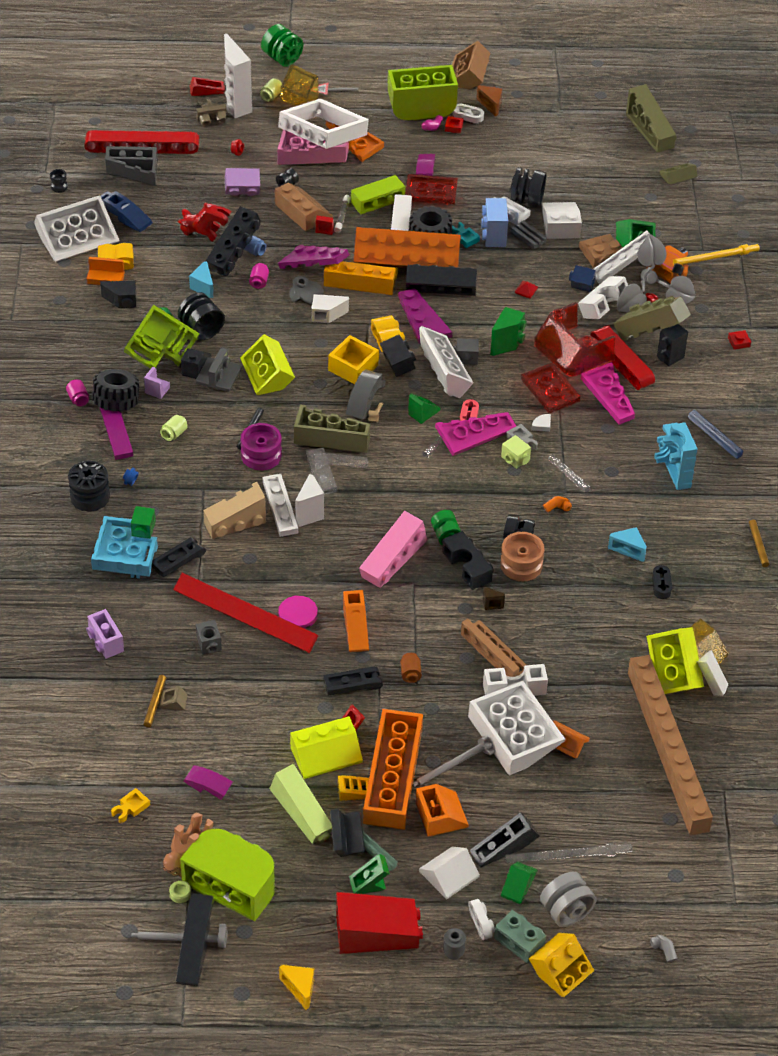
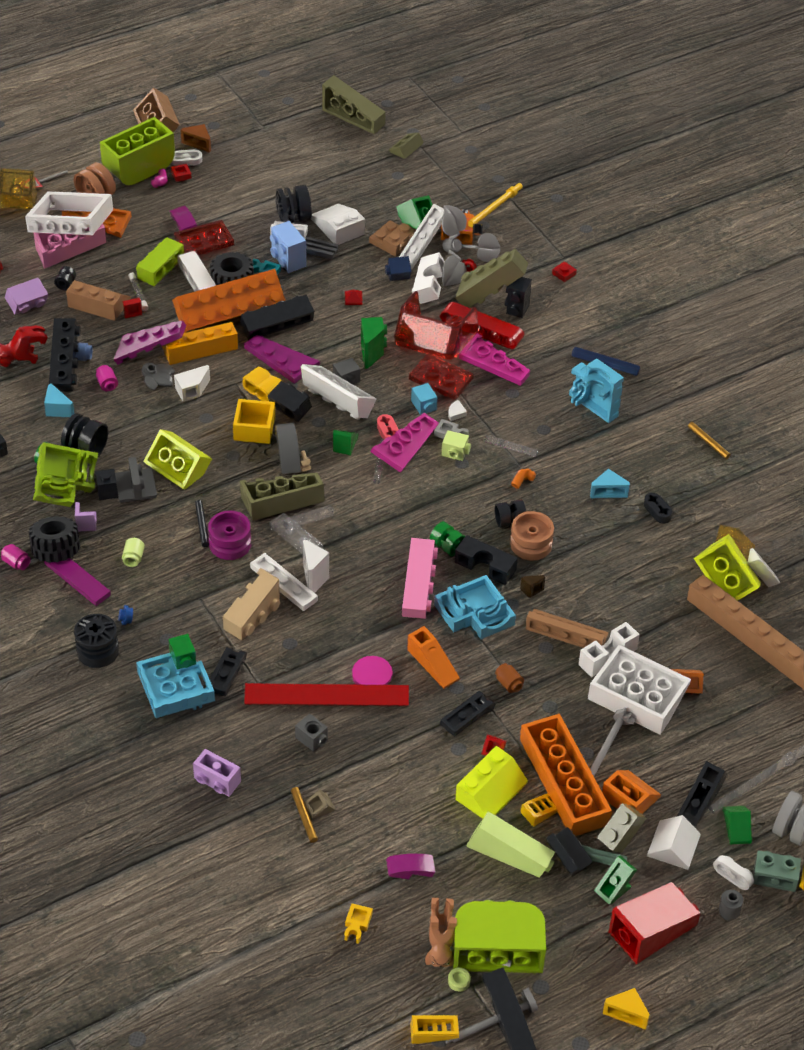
camera: 30 degrees left, 0 degrees up
(125, 910) = (426, 1036): none -> yellow slope
(368, 105) = (95, 180): none -> nougat wheel
(405, 834) = (621, 828): none -> brick
(429, 595) = (477, 606): none -> medium azure piece
(519, 400) = (424, 398): none -> medium azure brick

